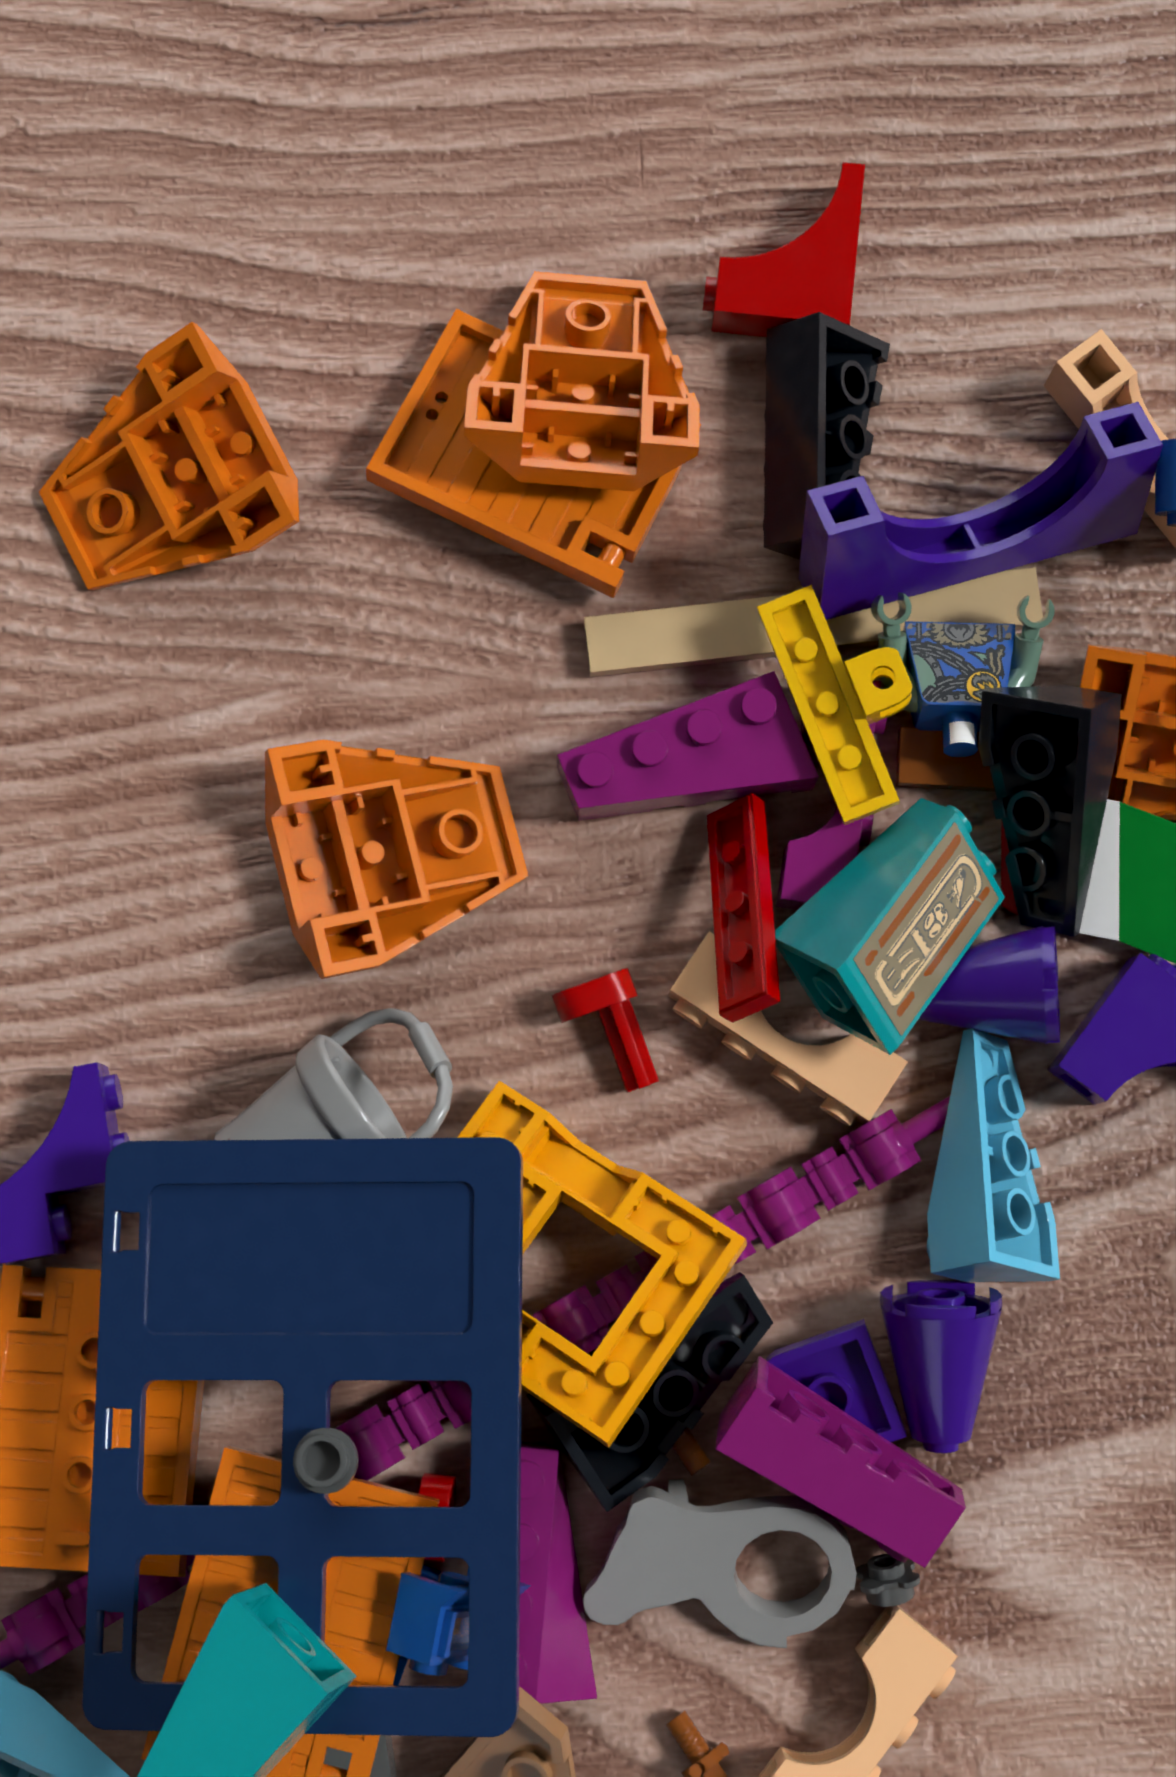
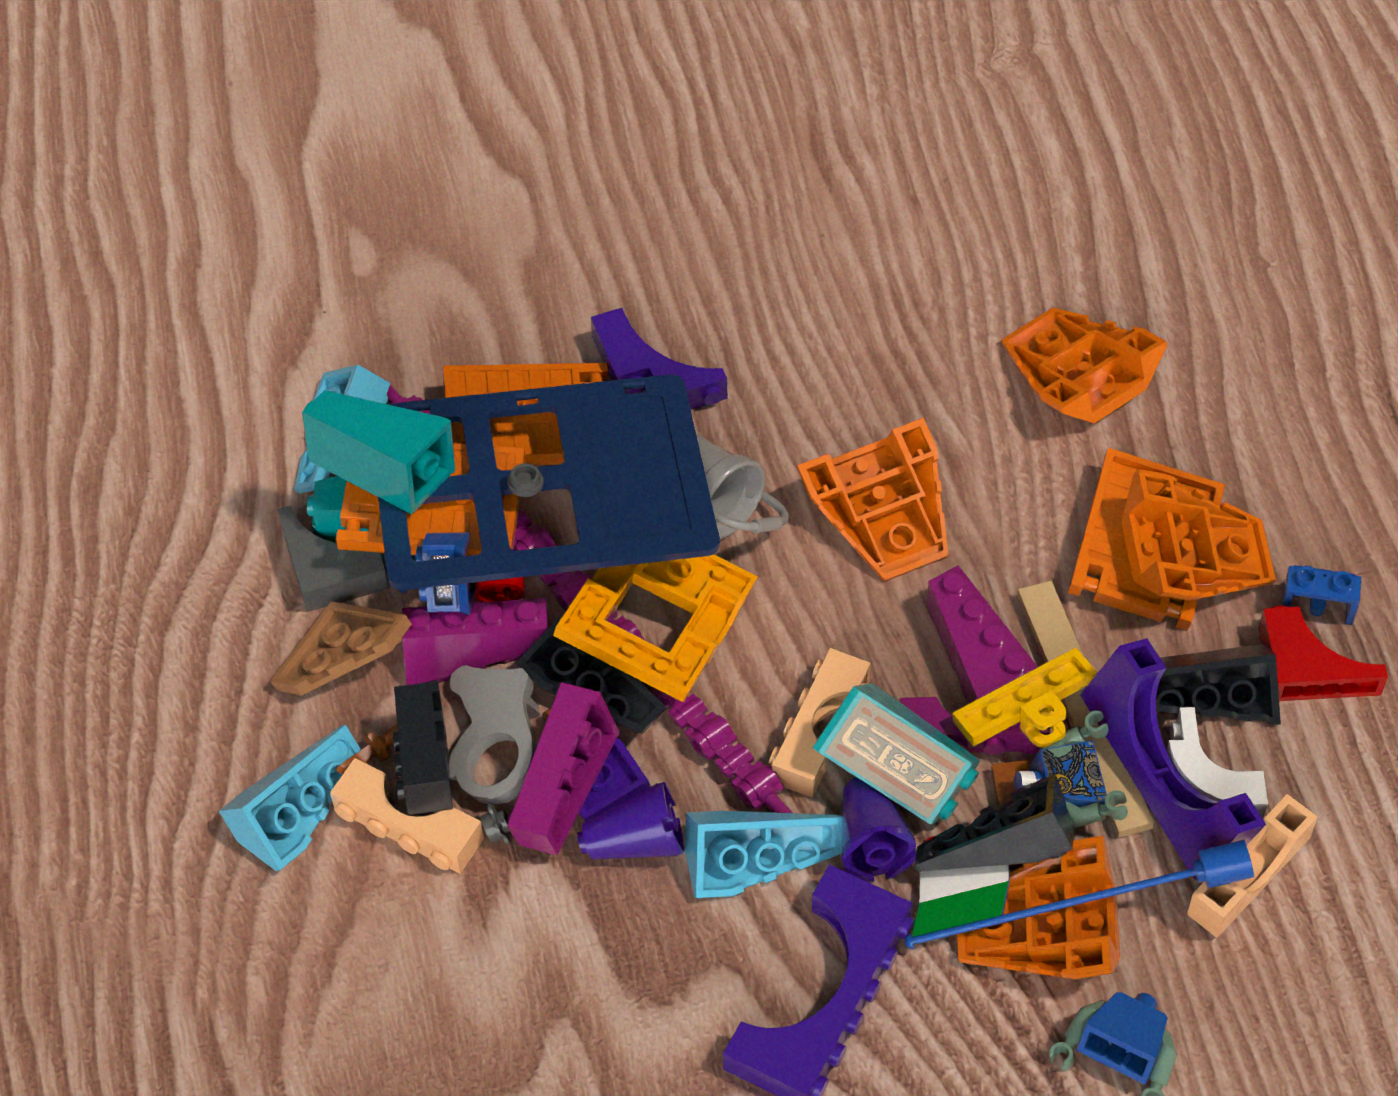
camera: 85 degrees right, 25 degrees down
(611, 999) = (819, 628): red piece -> none
(685, 221) = (1322, 586): none -> blue window
(742, 909) = (888, 672): red tile -> none
(764, 1693) = (422, 749): none -> black wedge
(1010, 443) = (1205, 775): none -> white arch

